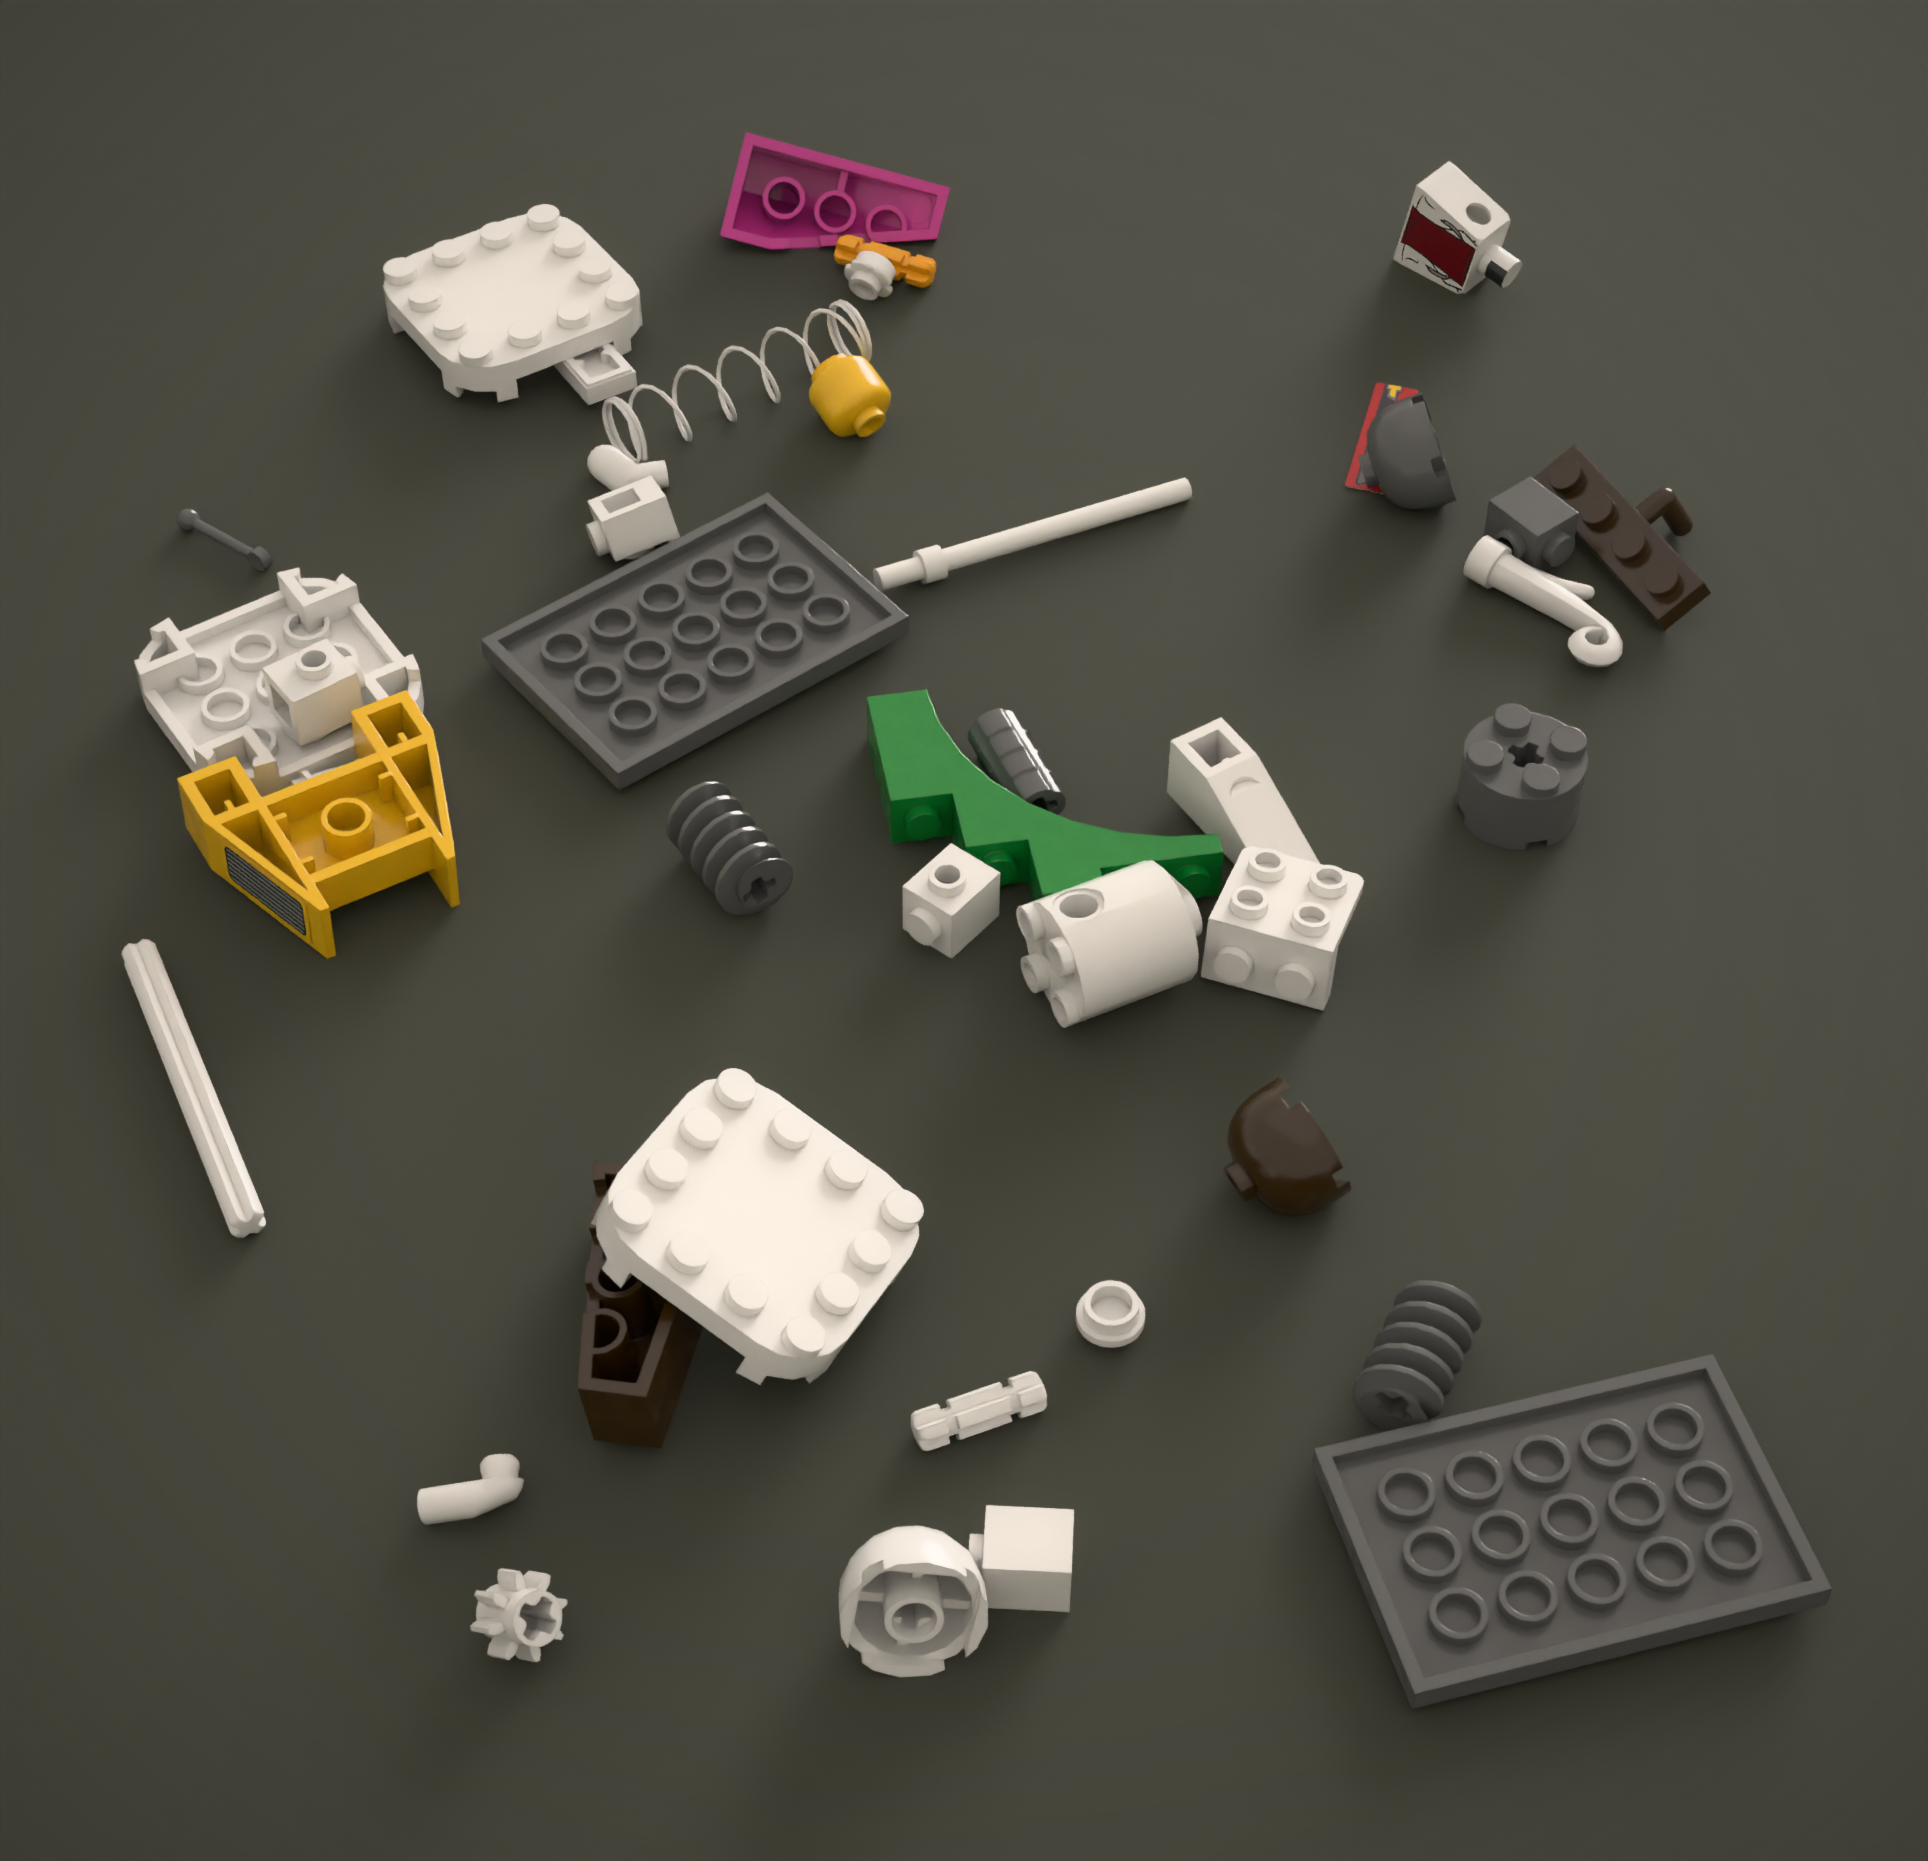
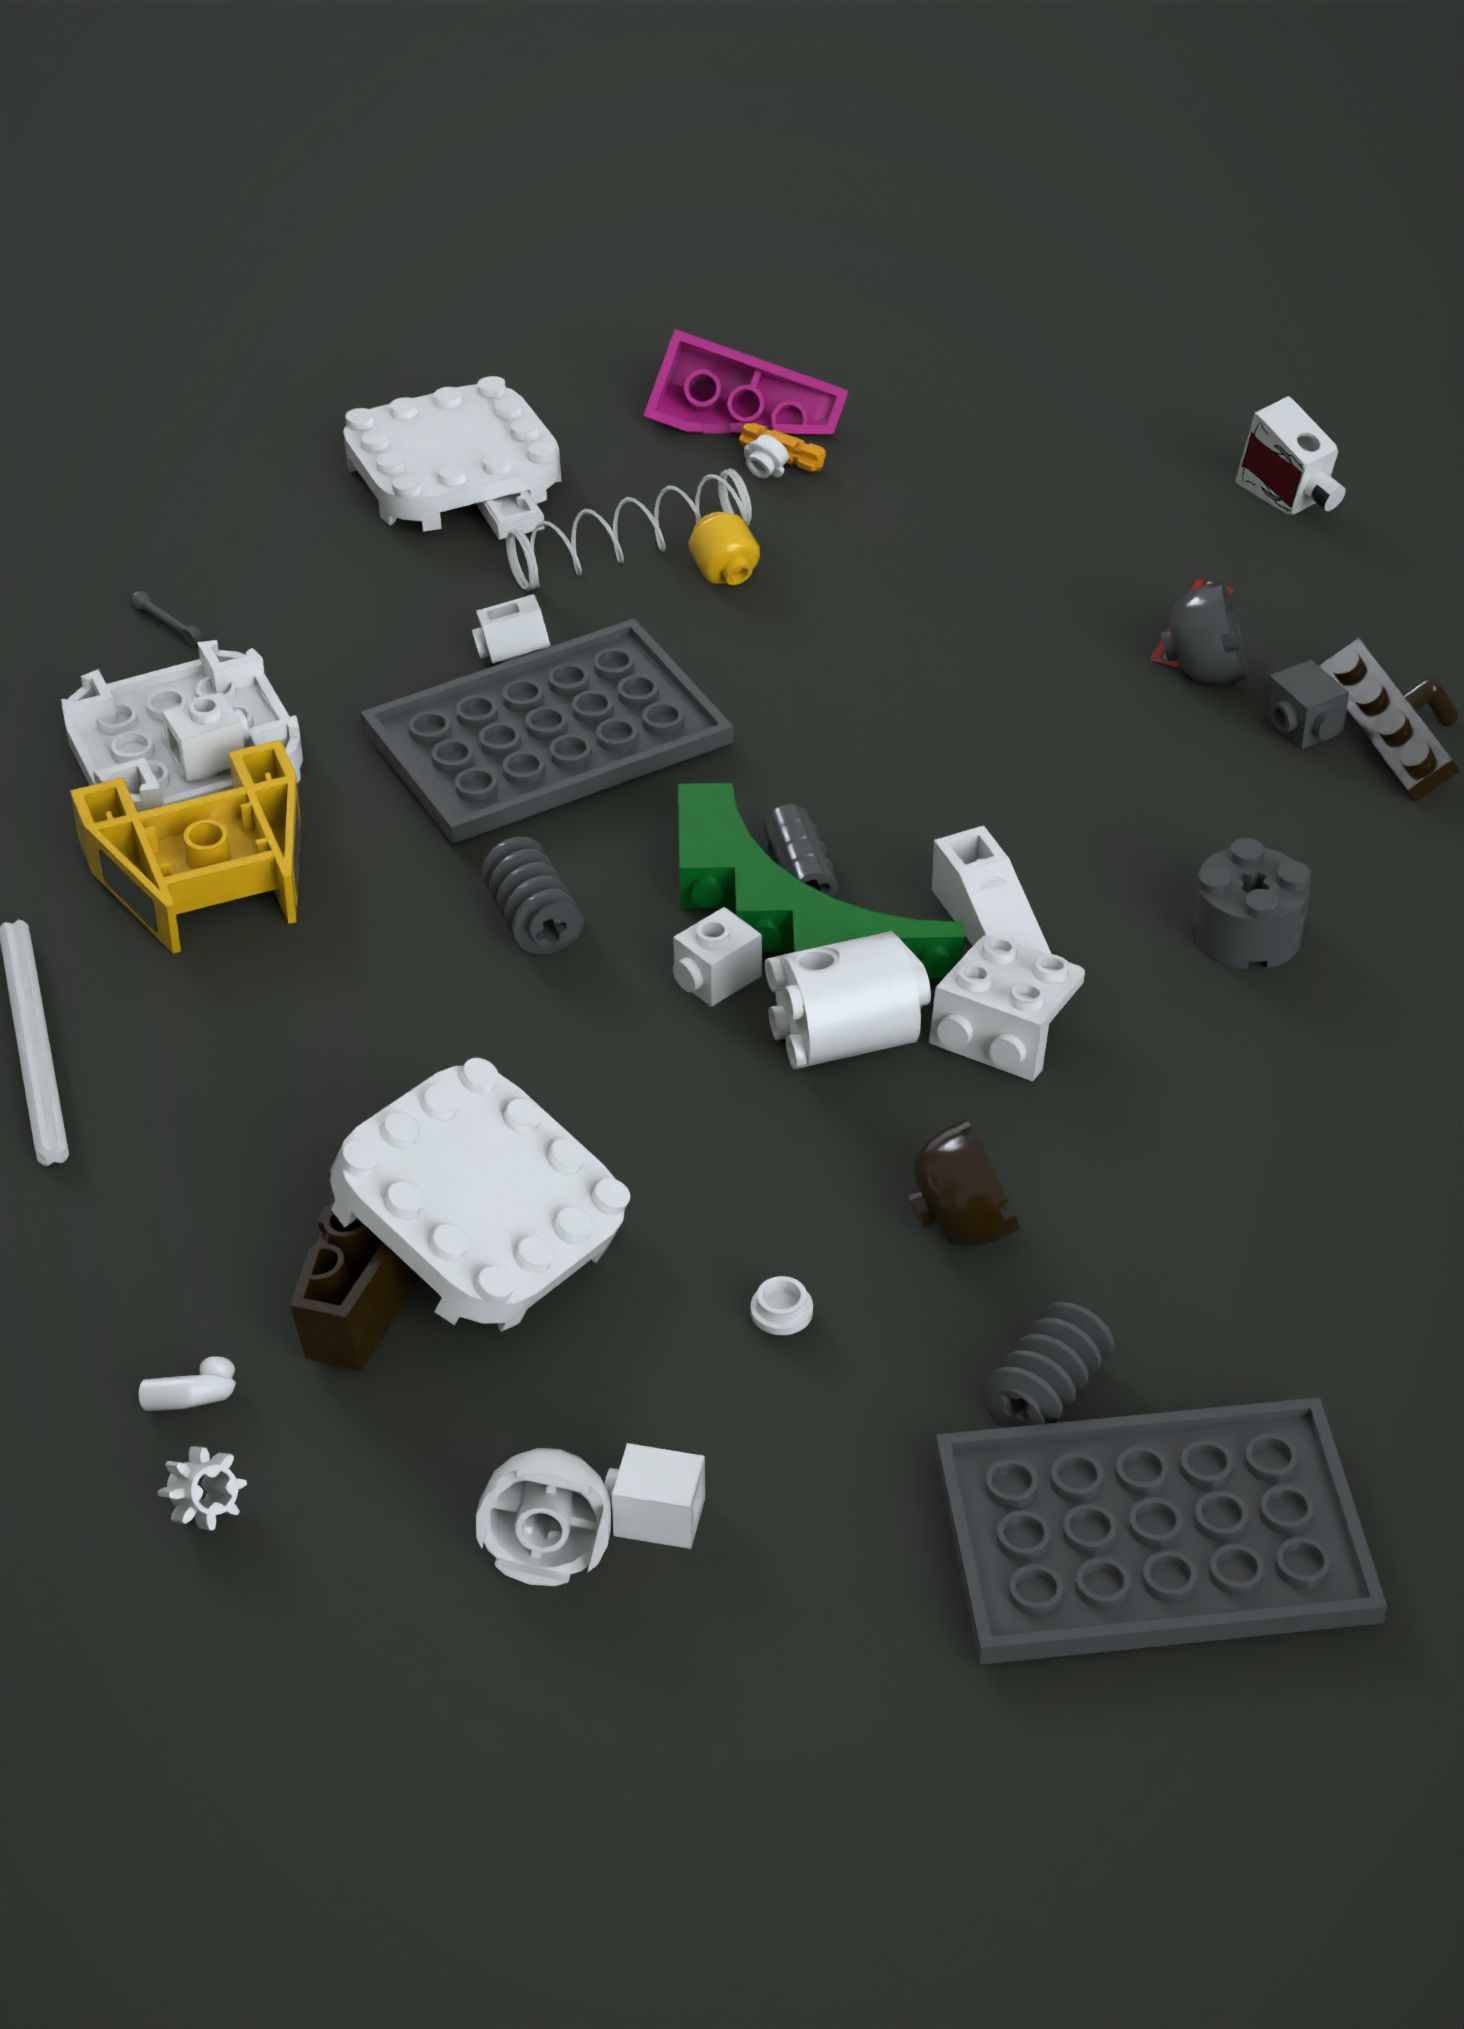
camera: 10 degrees right, 5 degrees down
(617, 469) = (506, 586): white arm -> none
(934, 563) = (767, 688): white bar -> none
(978, 1411) = (646, 1372): white axle -> none
(1595, 639) = (1346, 801): white plant -> none

